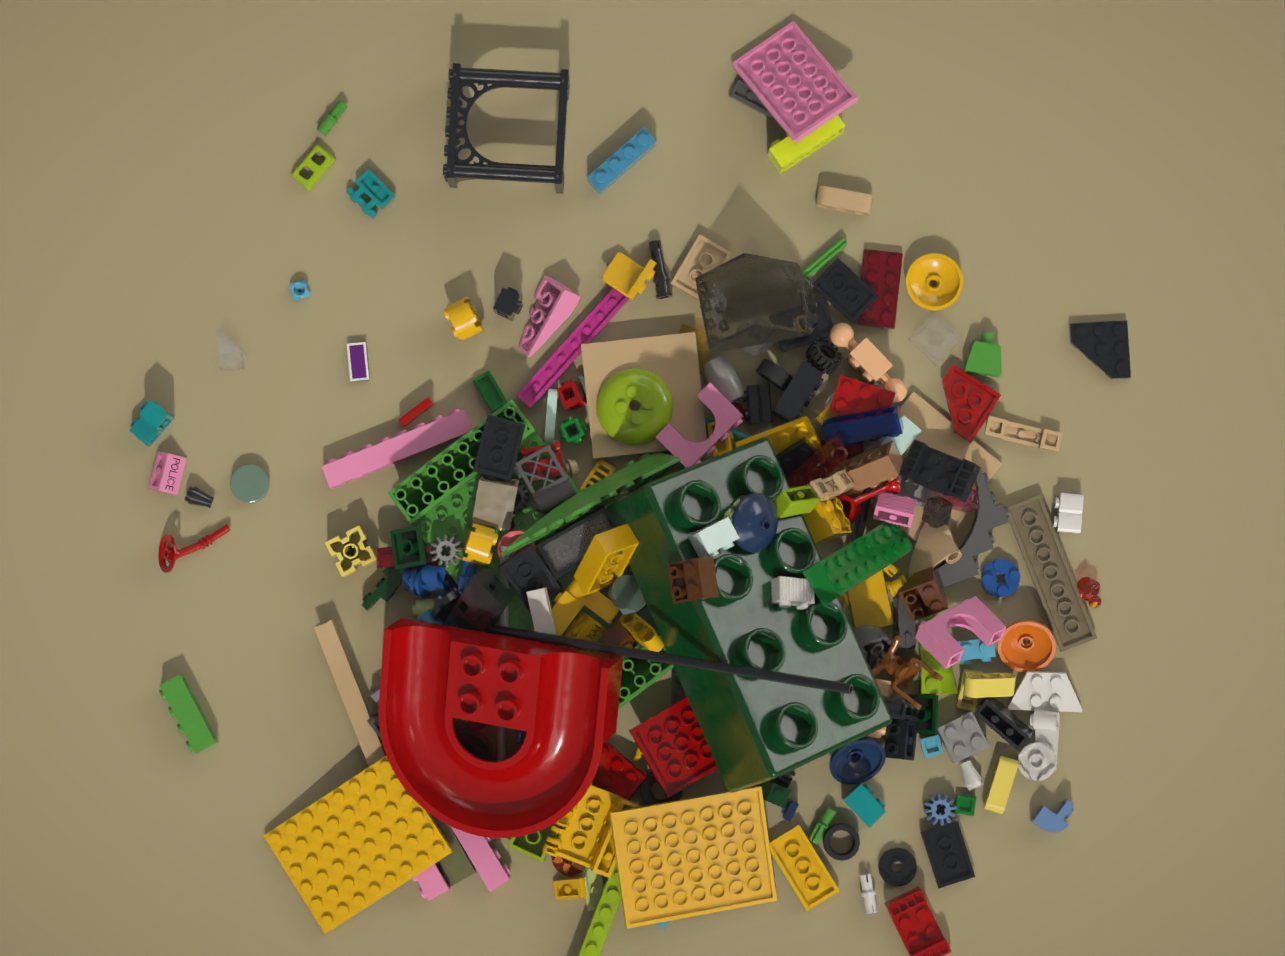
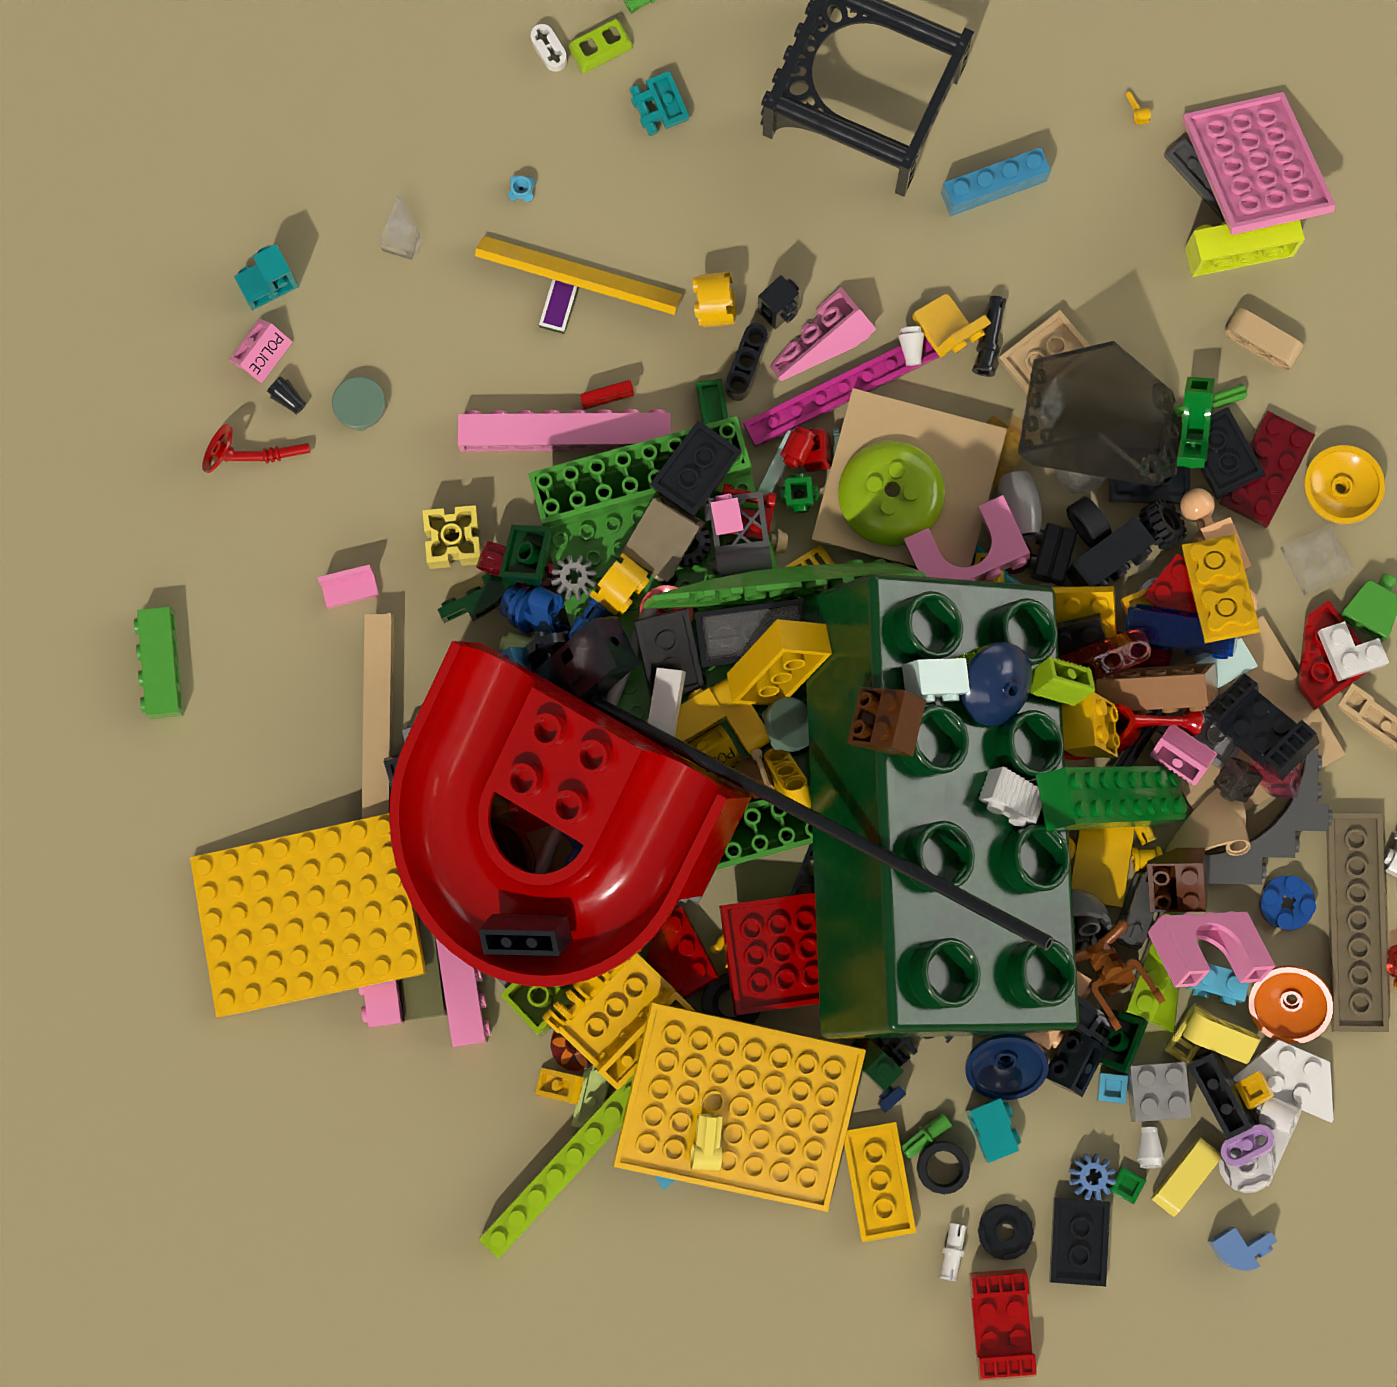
camera: 25 degrees right, 5 degrees down
(275, 186) = (544, 50): none -> white beam
(295, 612) = (349, 586): none -> bright pink panel
(363, 336) = (578, 275): none -> yellow tile
(501, 361) = (750, 350): none -> black beam
(510, 802) = (525, 934): none -> brick
(532, 471) = (726, 514): none -> bright pink brick
(560, 400) = (797, 447): none -> red brick
(609, 299) = (912, 344): none -> white cone
(615, 623) = (757, 755): none -> tan hinge
(683, 893) = (707, 1152): none -> light yellow piece
(703, 74) = (1141, 116): none -> yellow hand
(820, 279) = (1196, 422): none -> green arch
(832, 486) = (1114, 685): tan slope -> none
(877, 391) = (1220, 588): none -> yellow piece
(977, 399) = (1347, 658): none -> white plate
(1023, 711) = (1254, 1090): none -> yellow plate
(1032, 749) = (1247, 1144): none -> lavender plate

